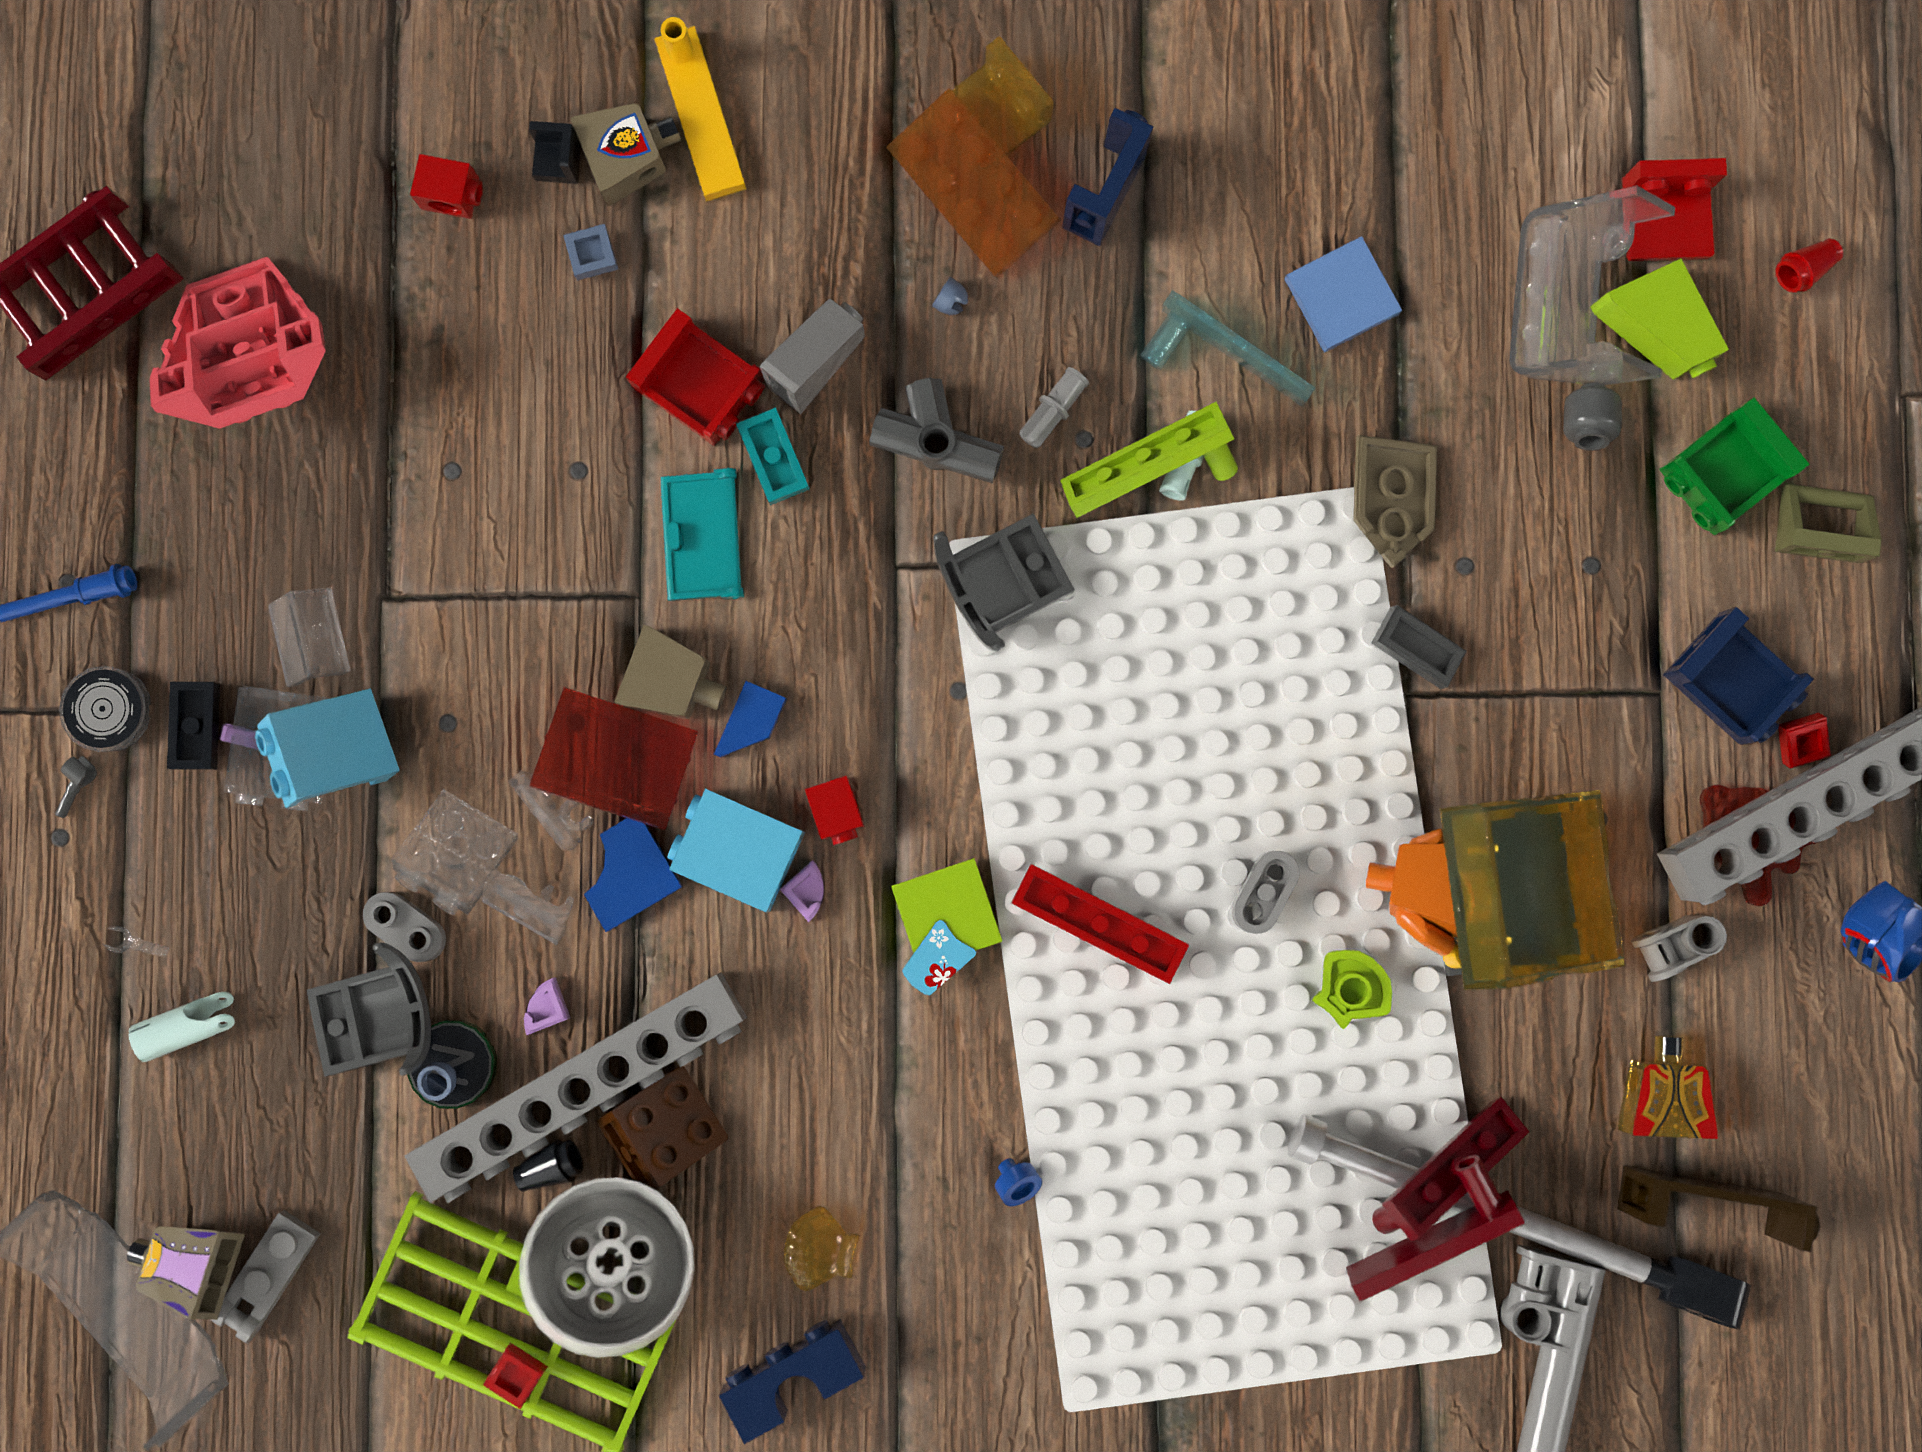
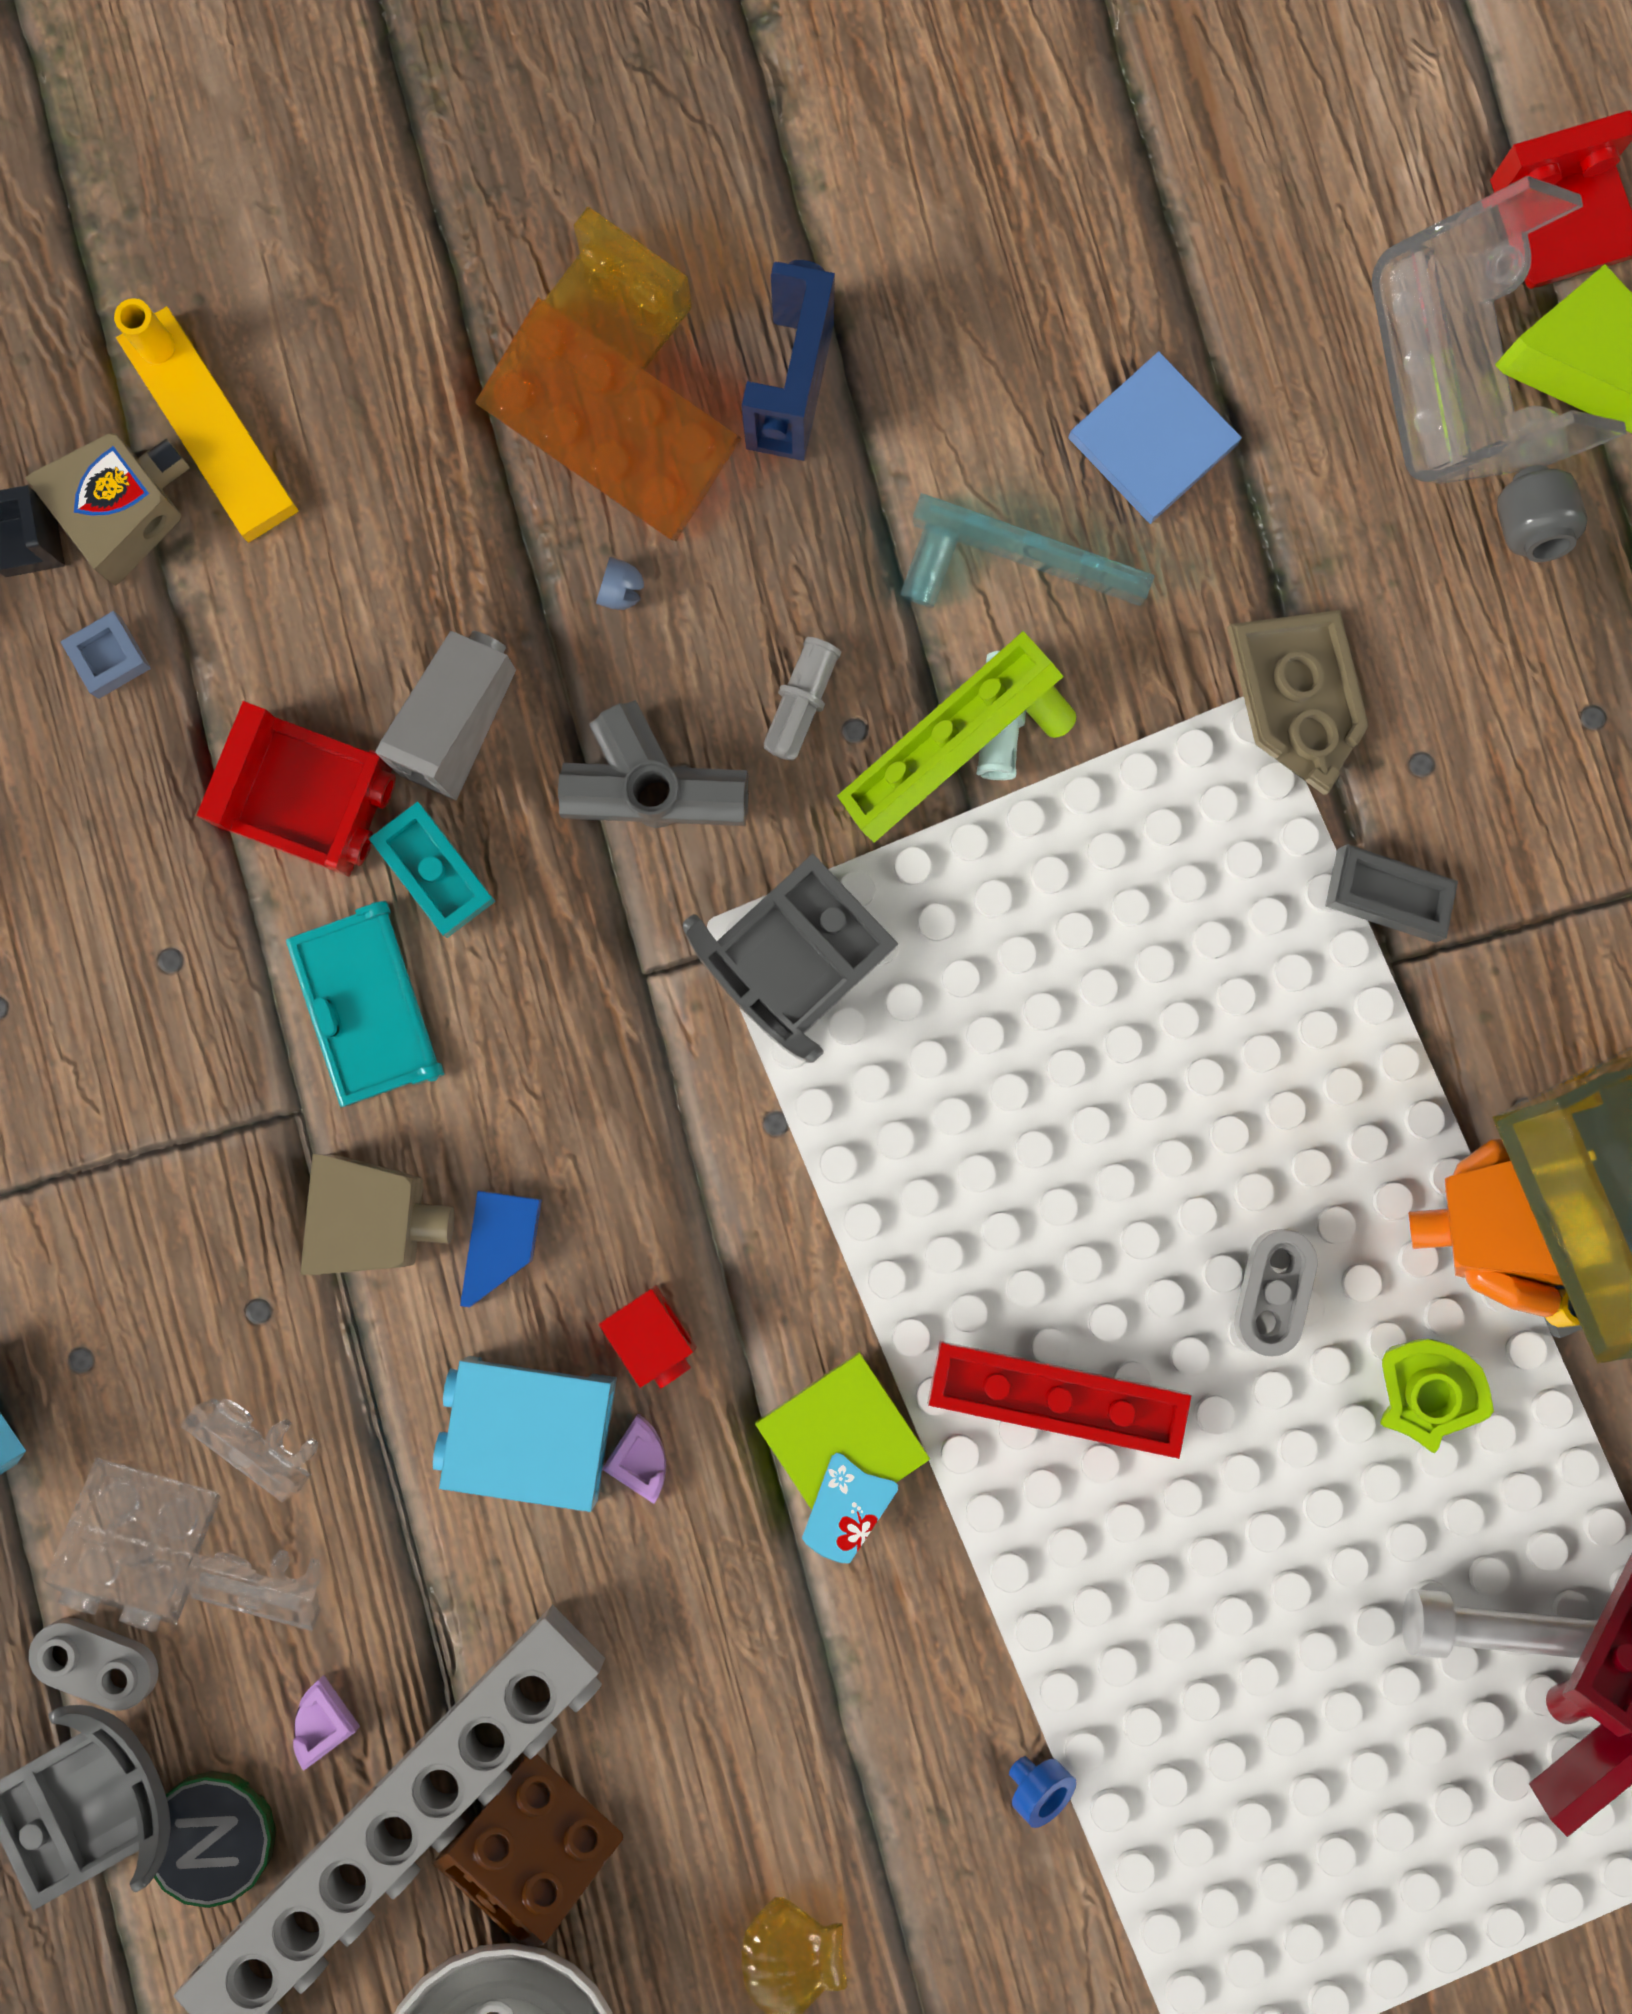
camera: 10 degrees left, 0 degrees up
(432, 1085) = (192, 1874): sand blue hinge -> none
(549, 1167) = (384, 1947): black cone -> none
(614, 758) = (321, 1352): clear red piece -> none
(633, 874) = (391, 1503): blue tile -> none

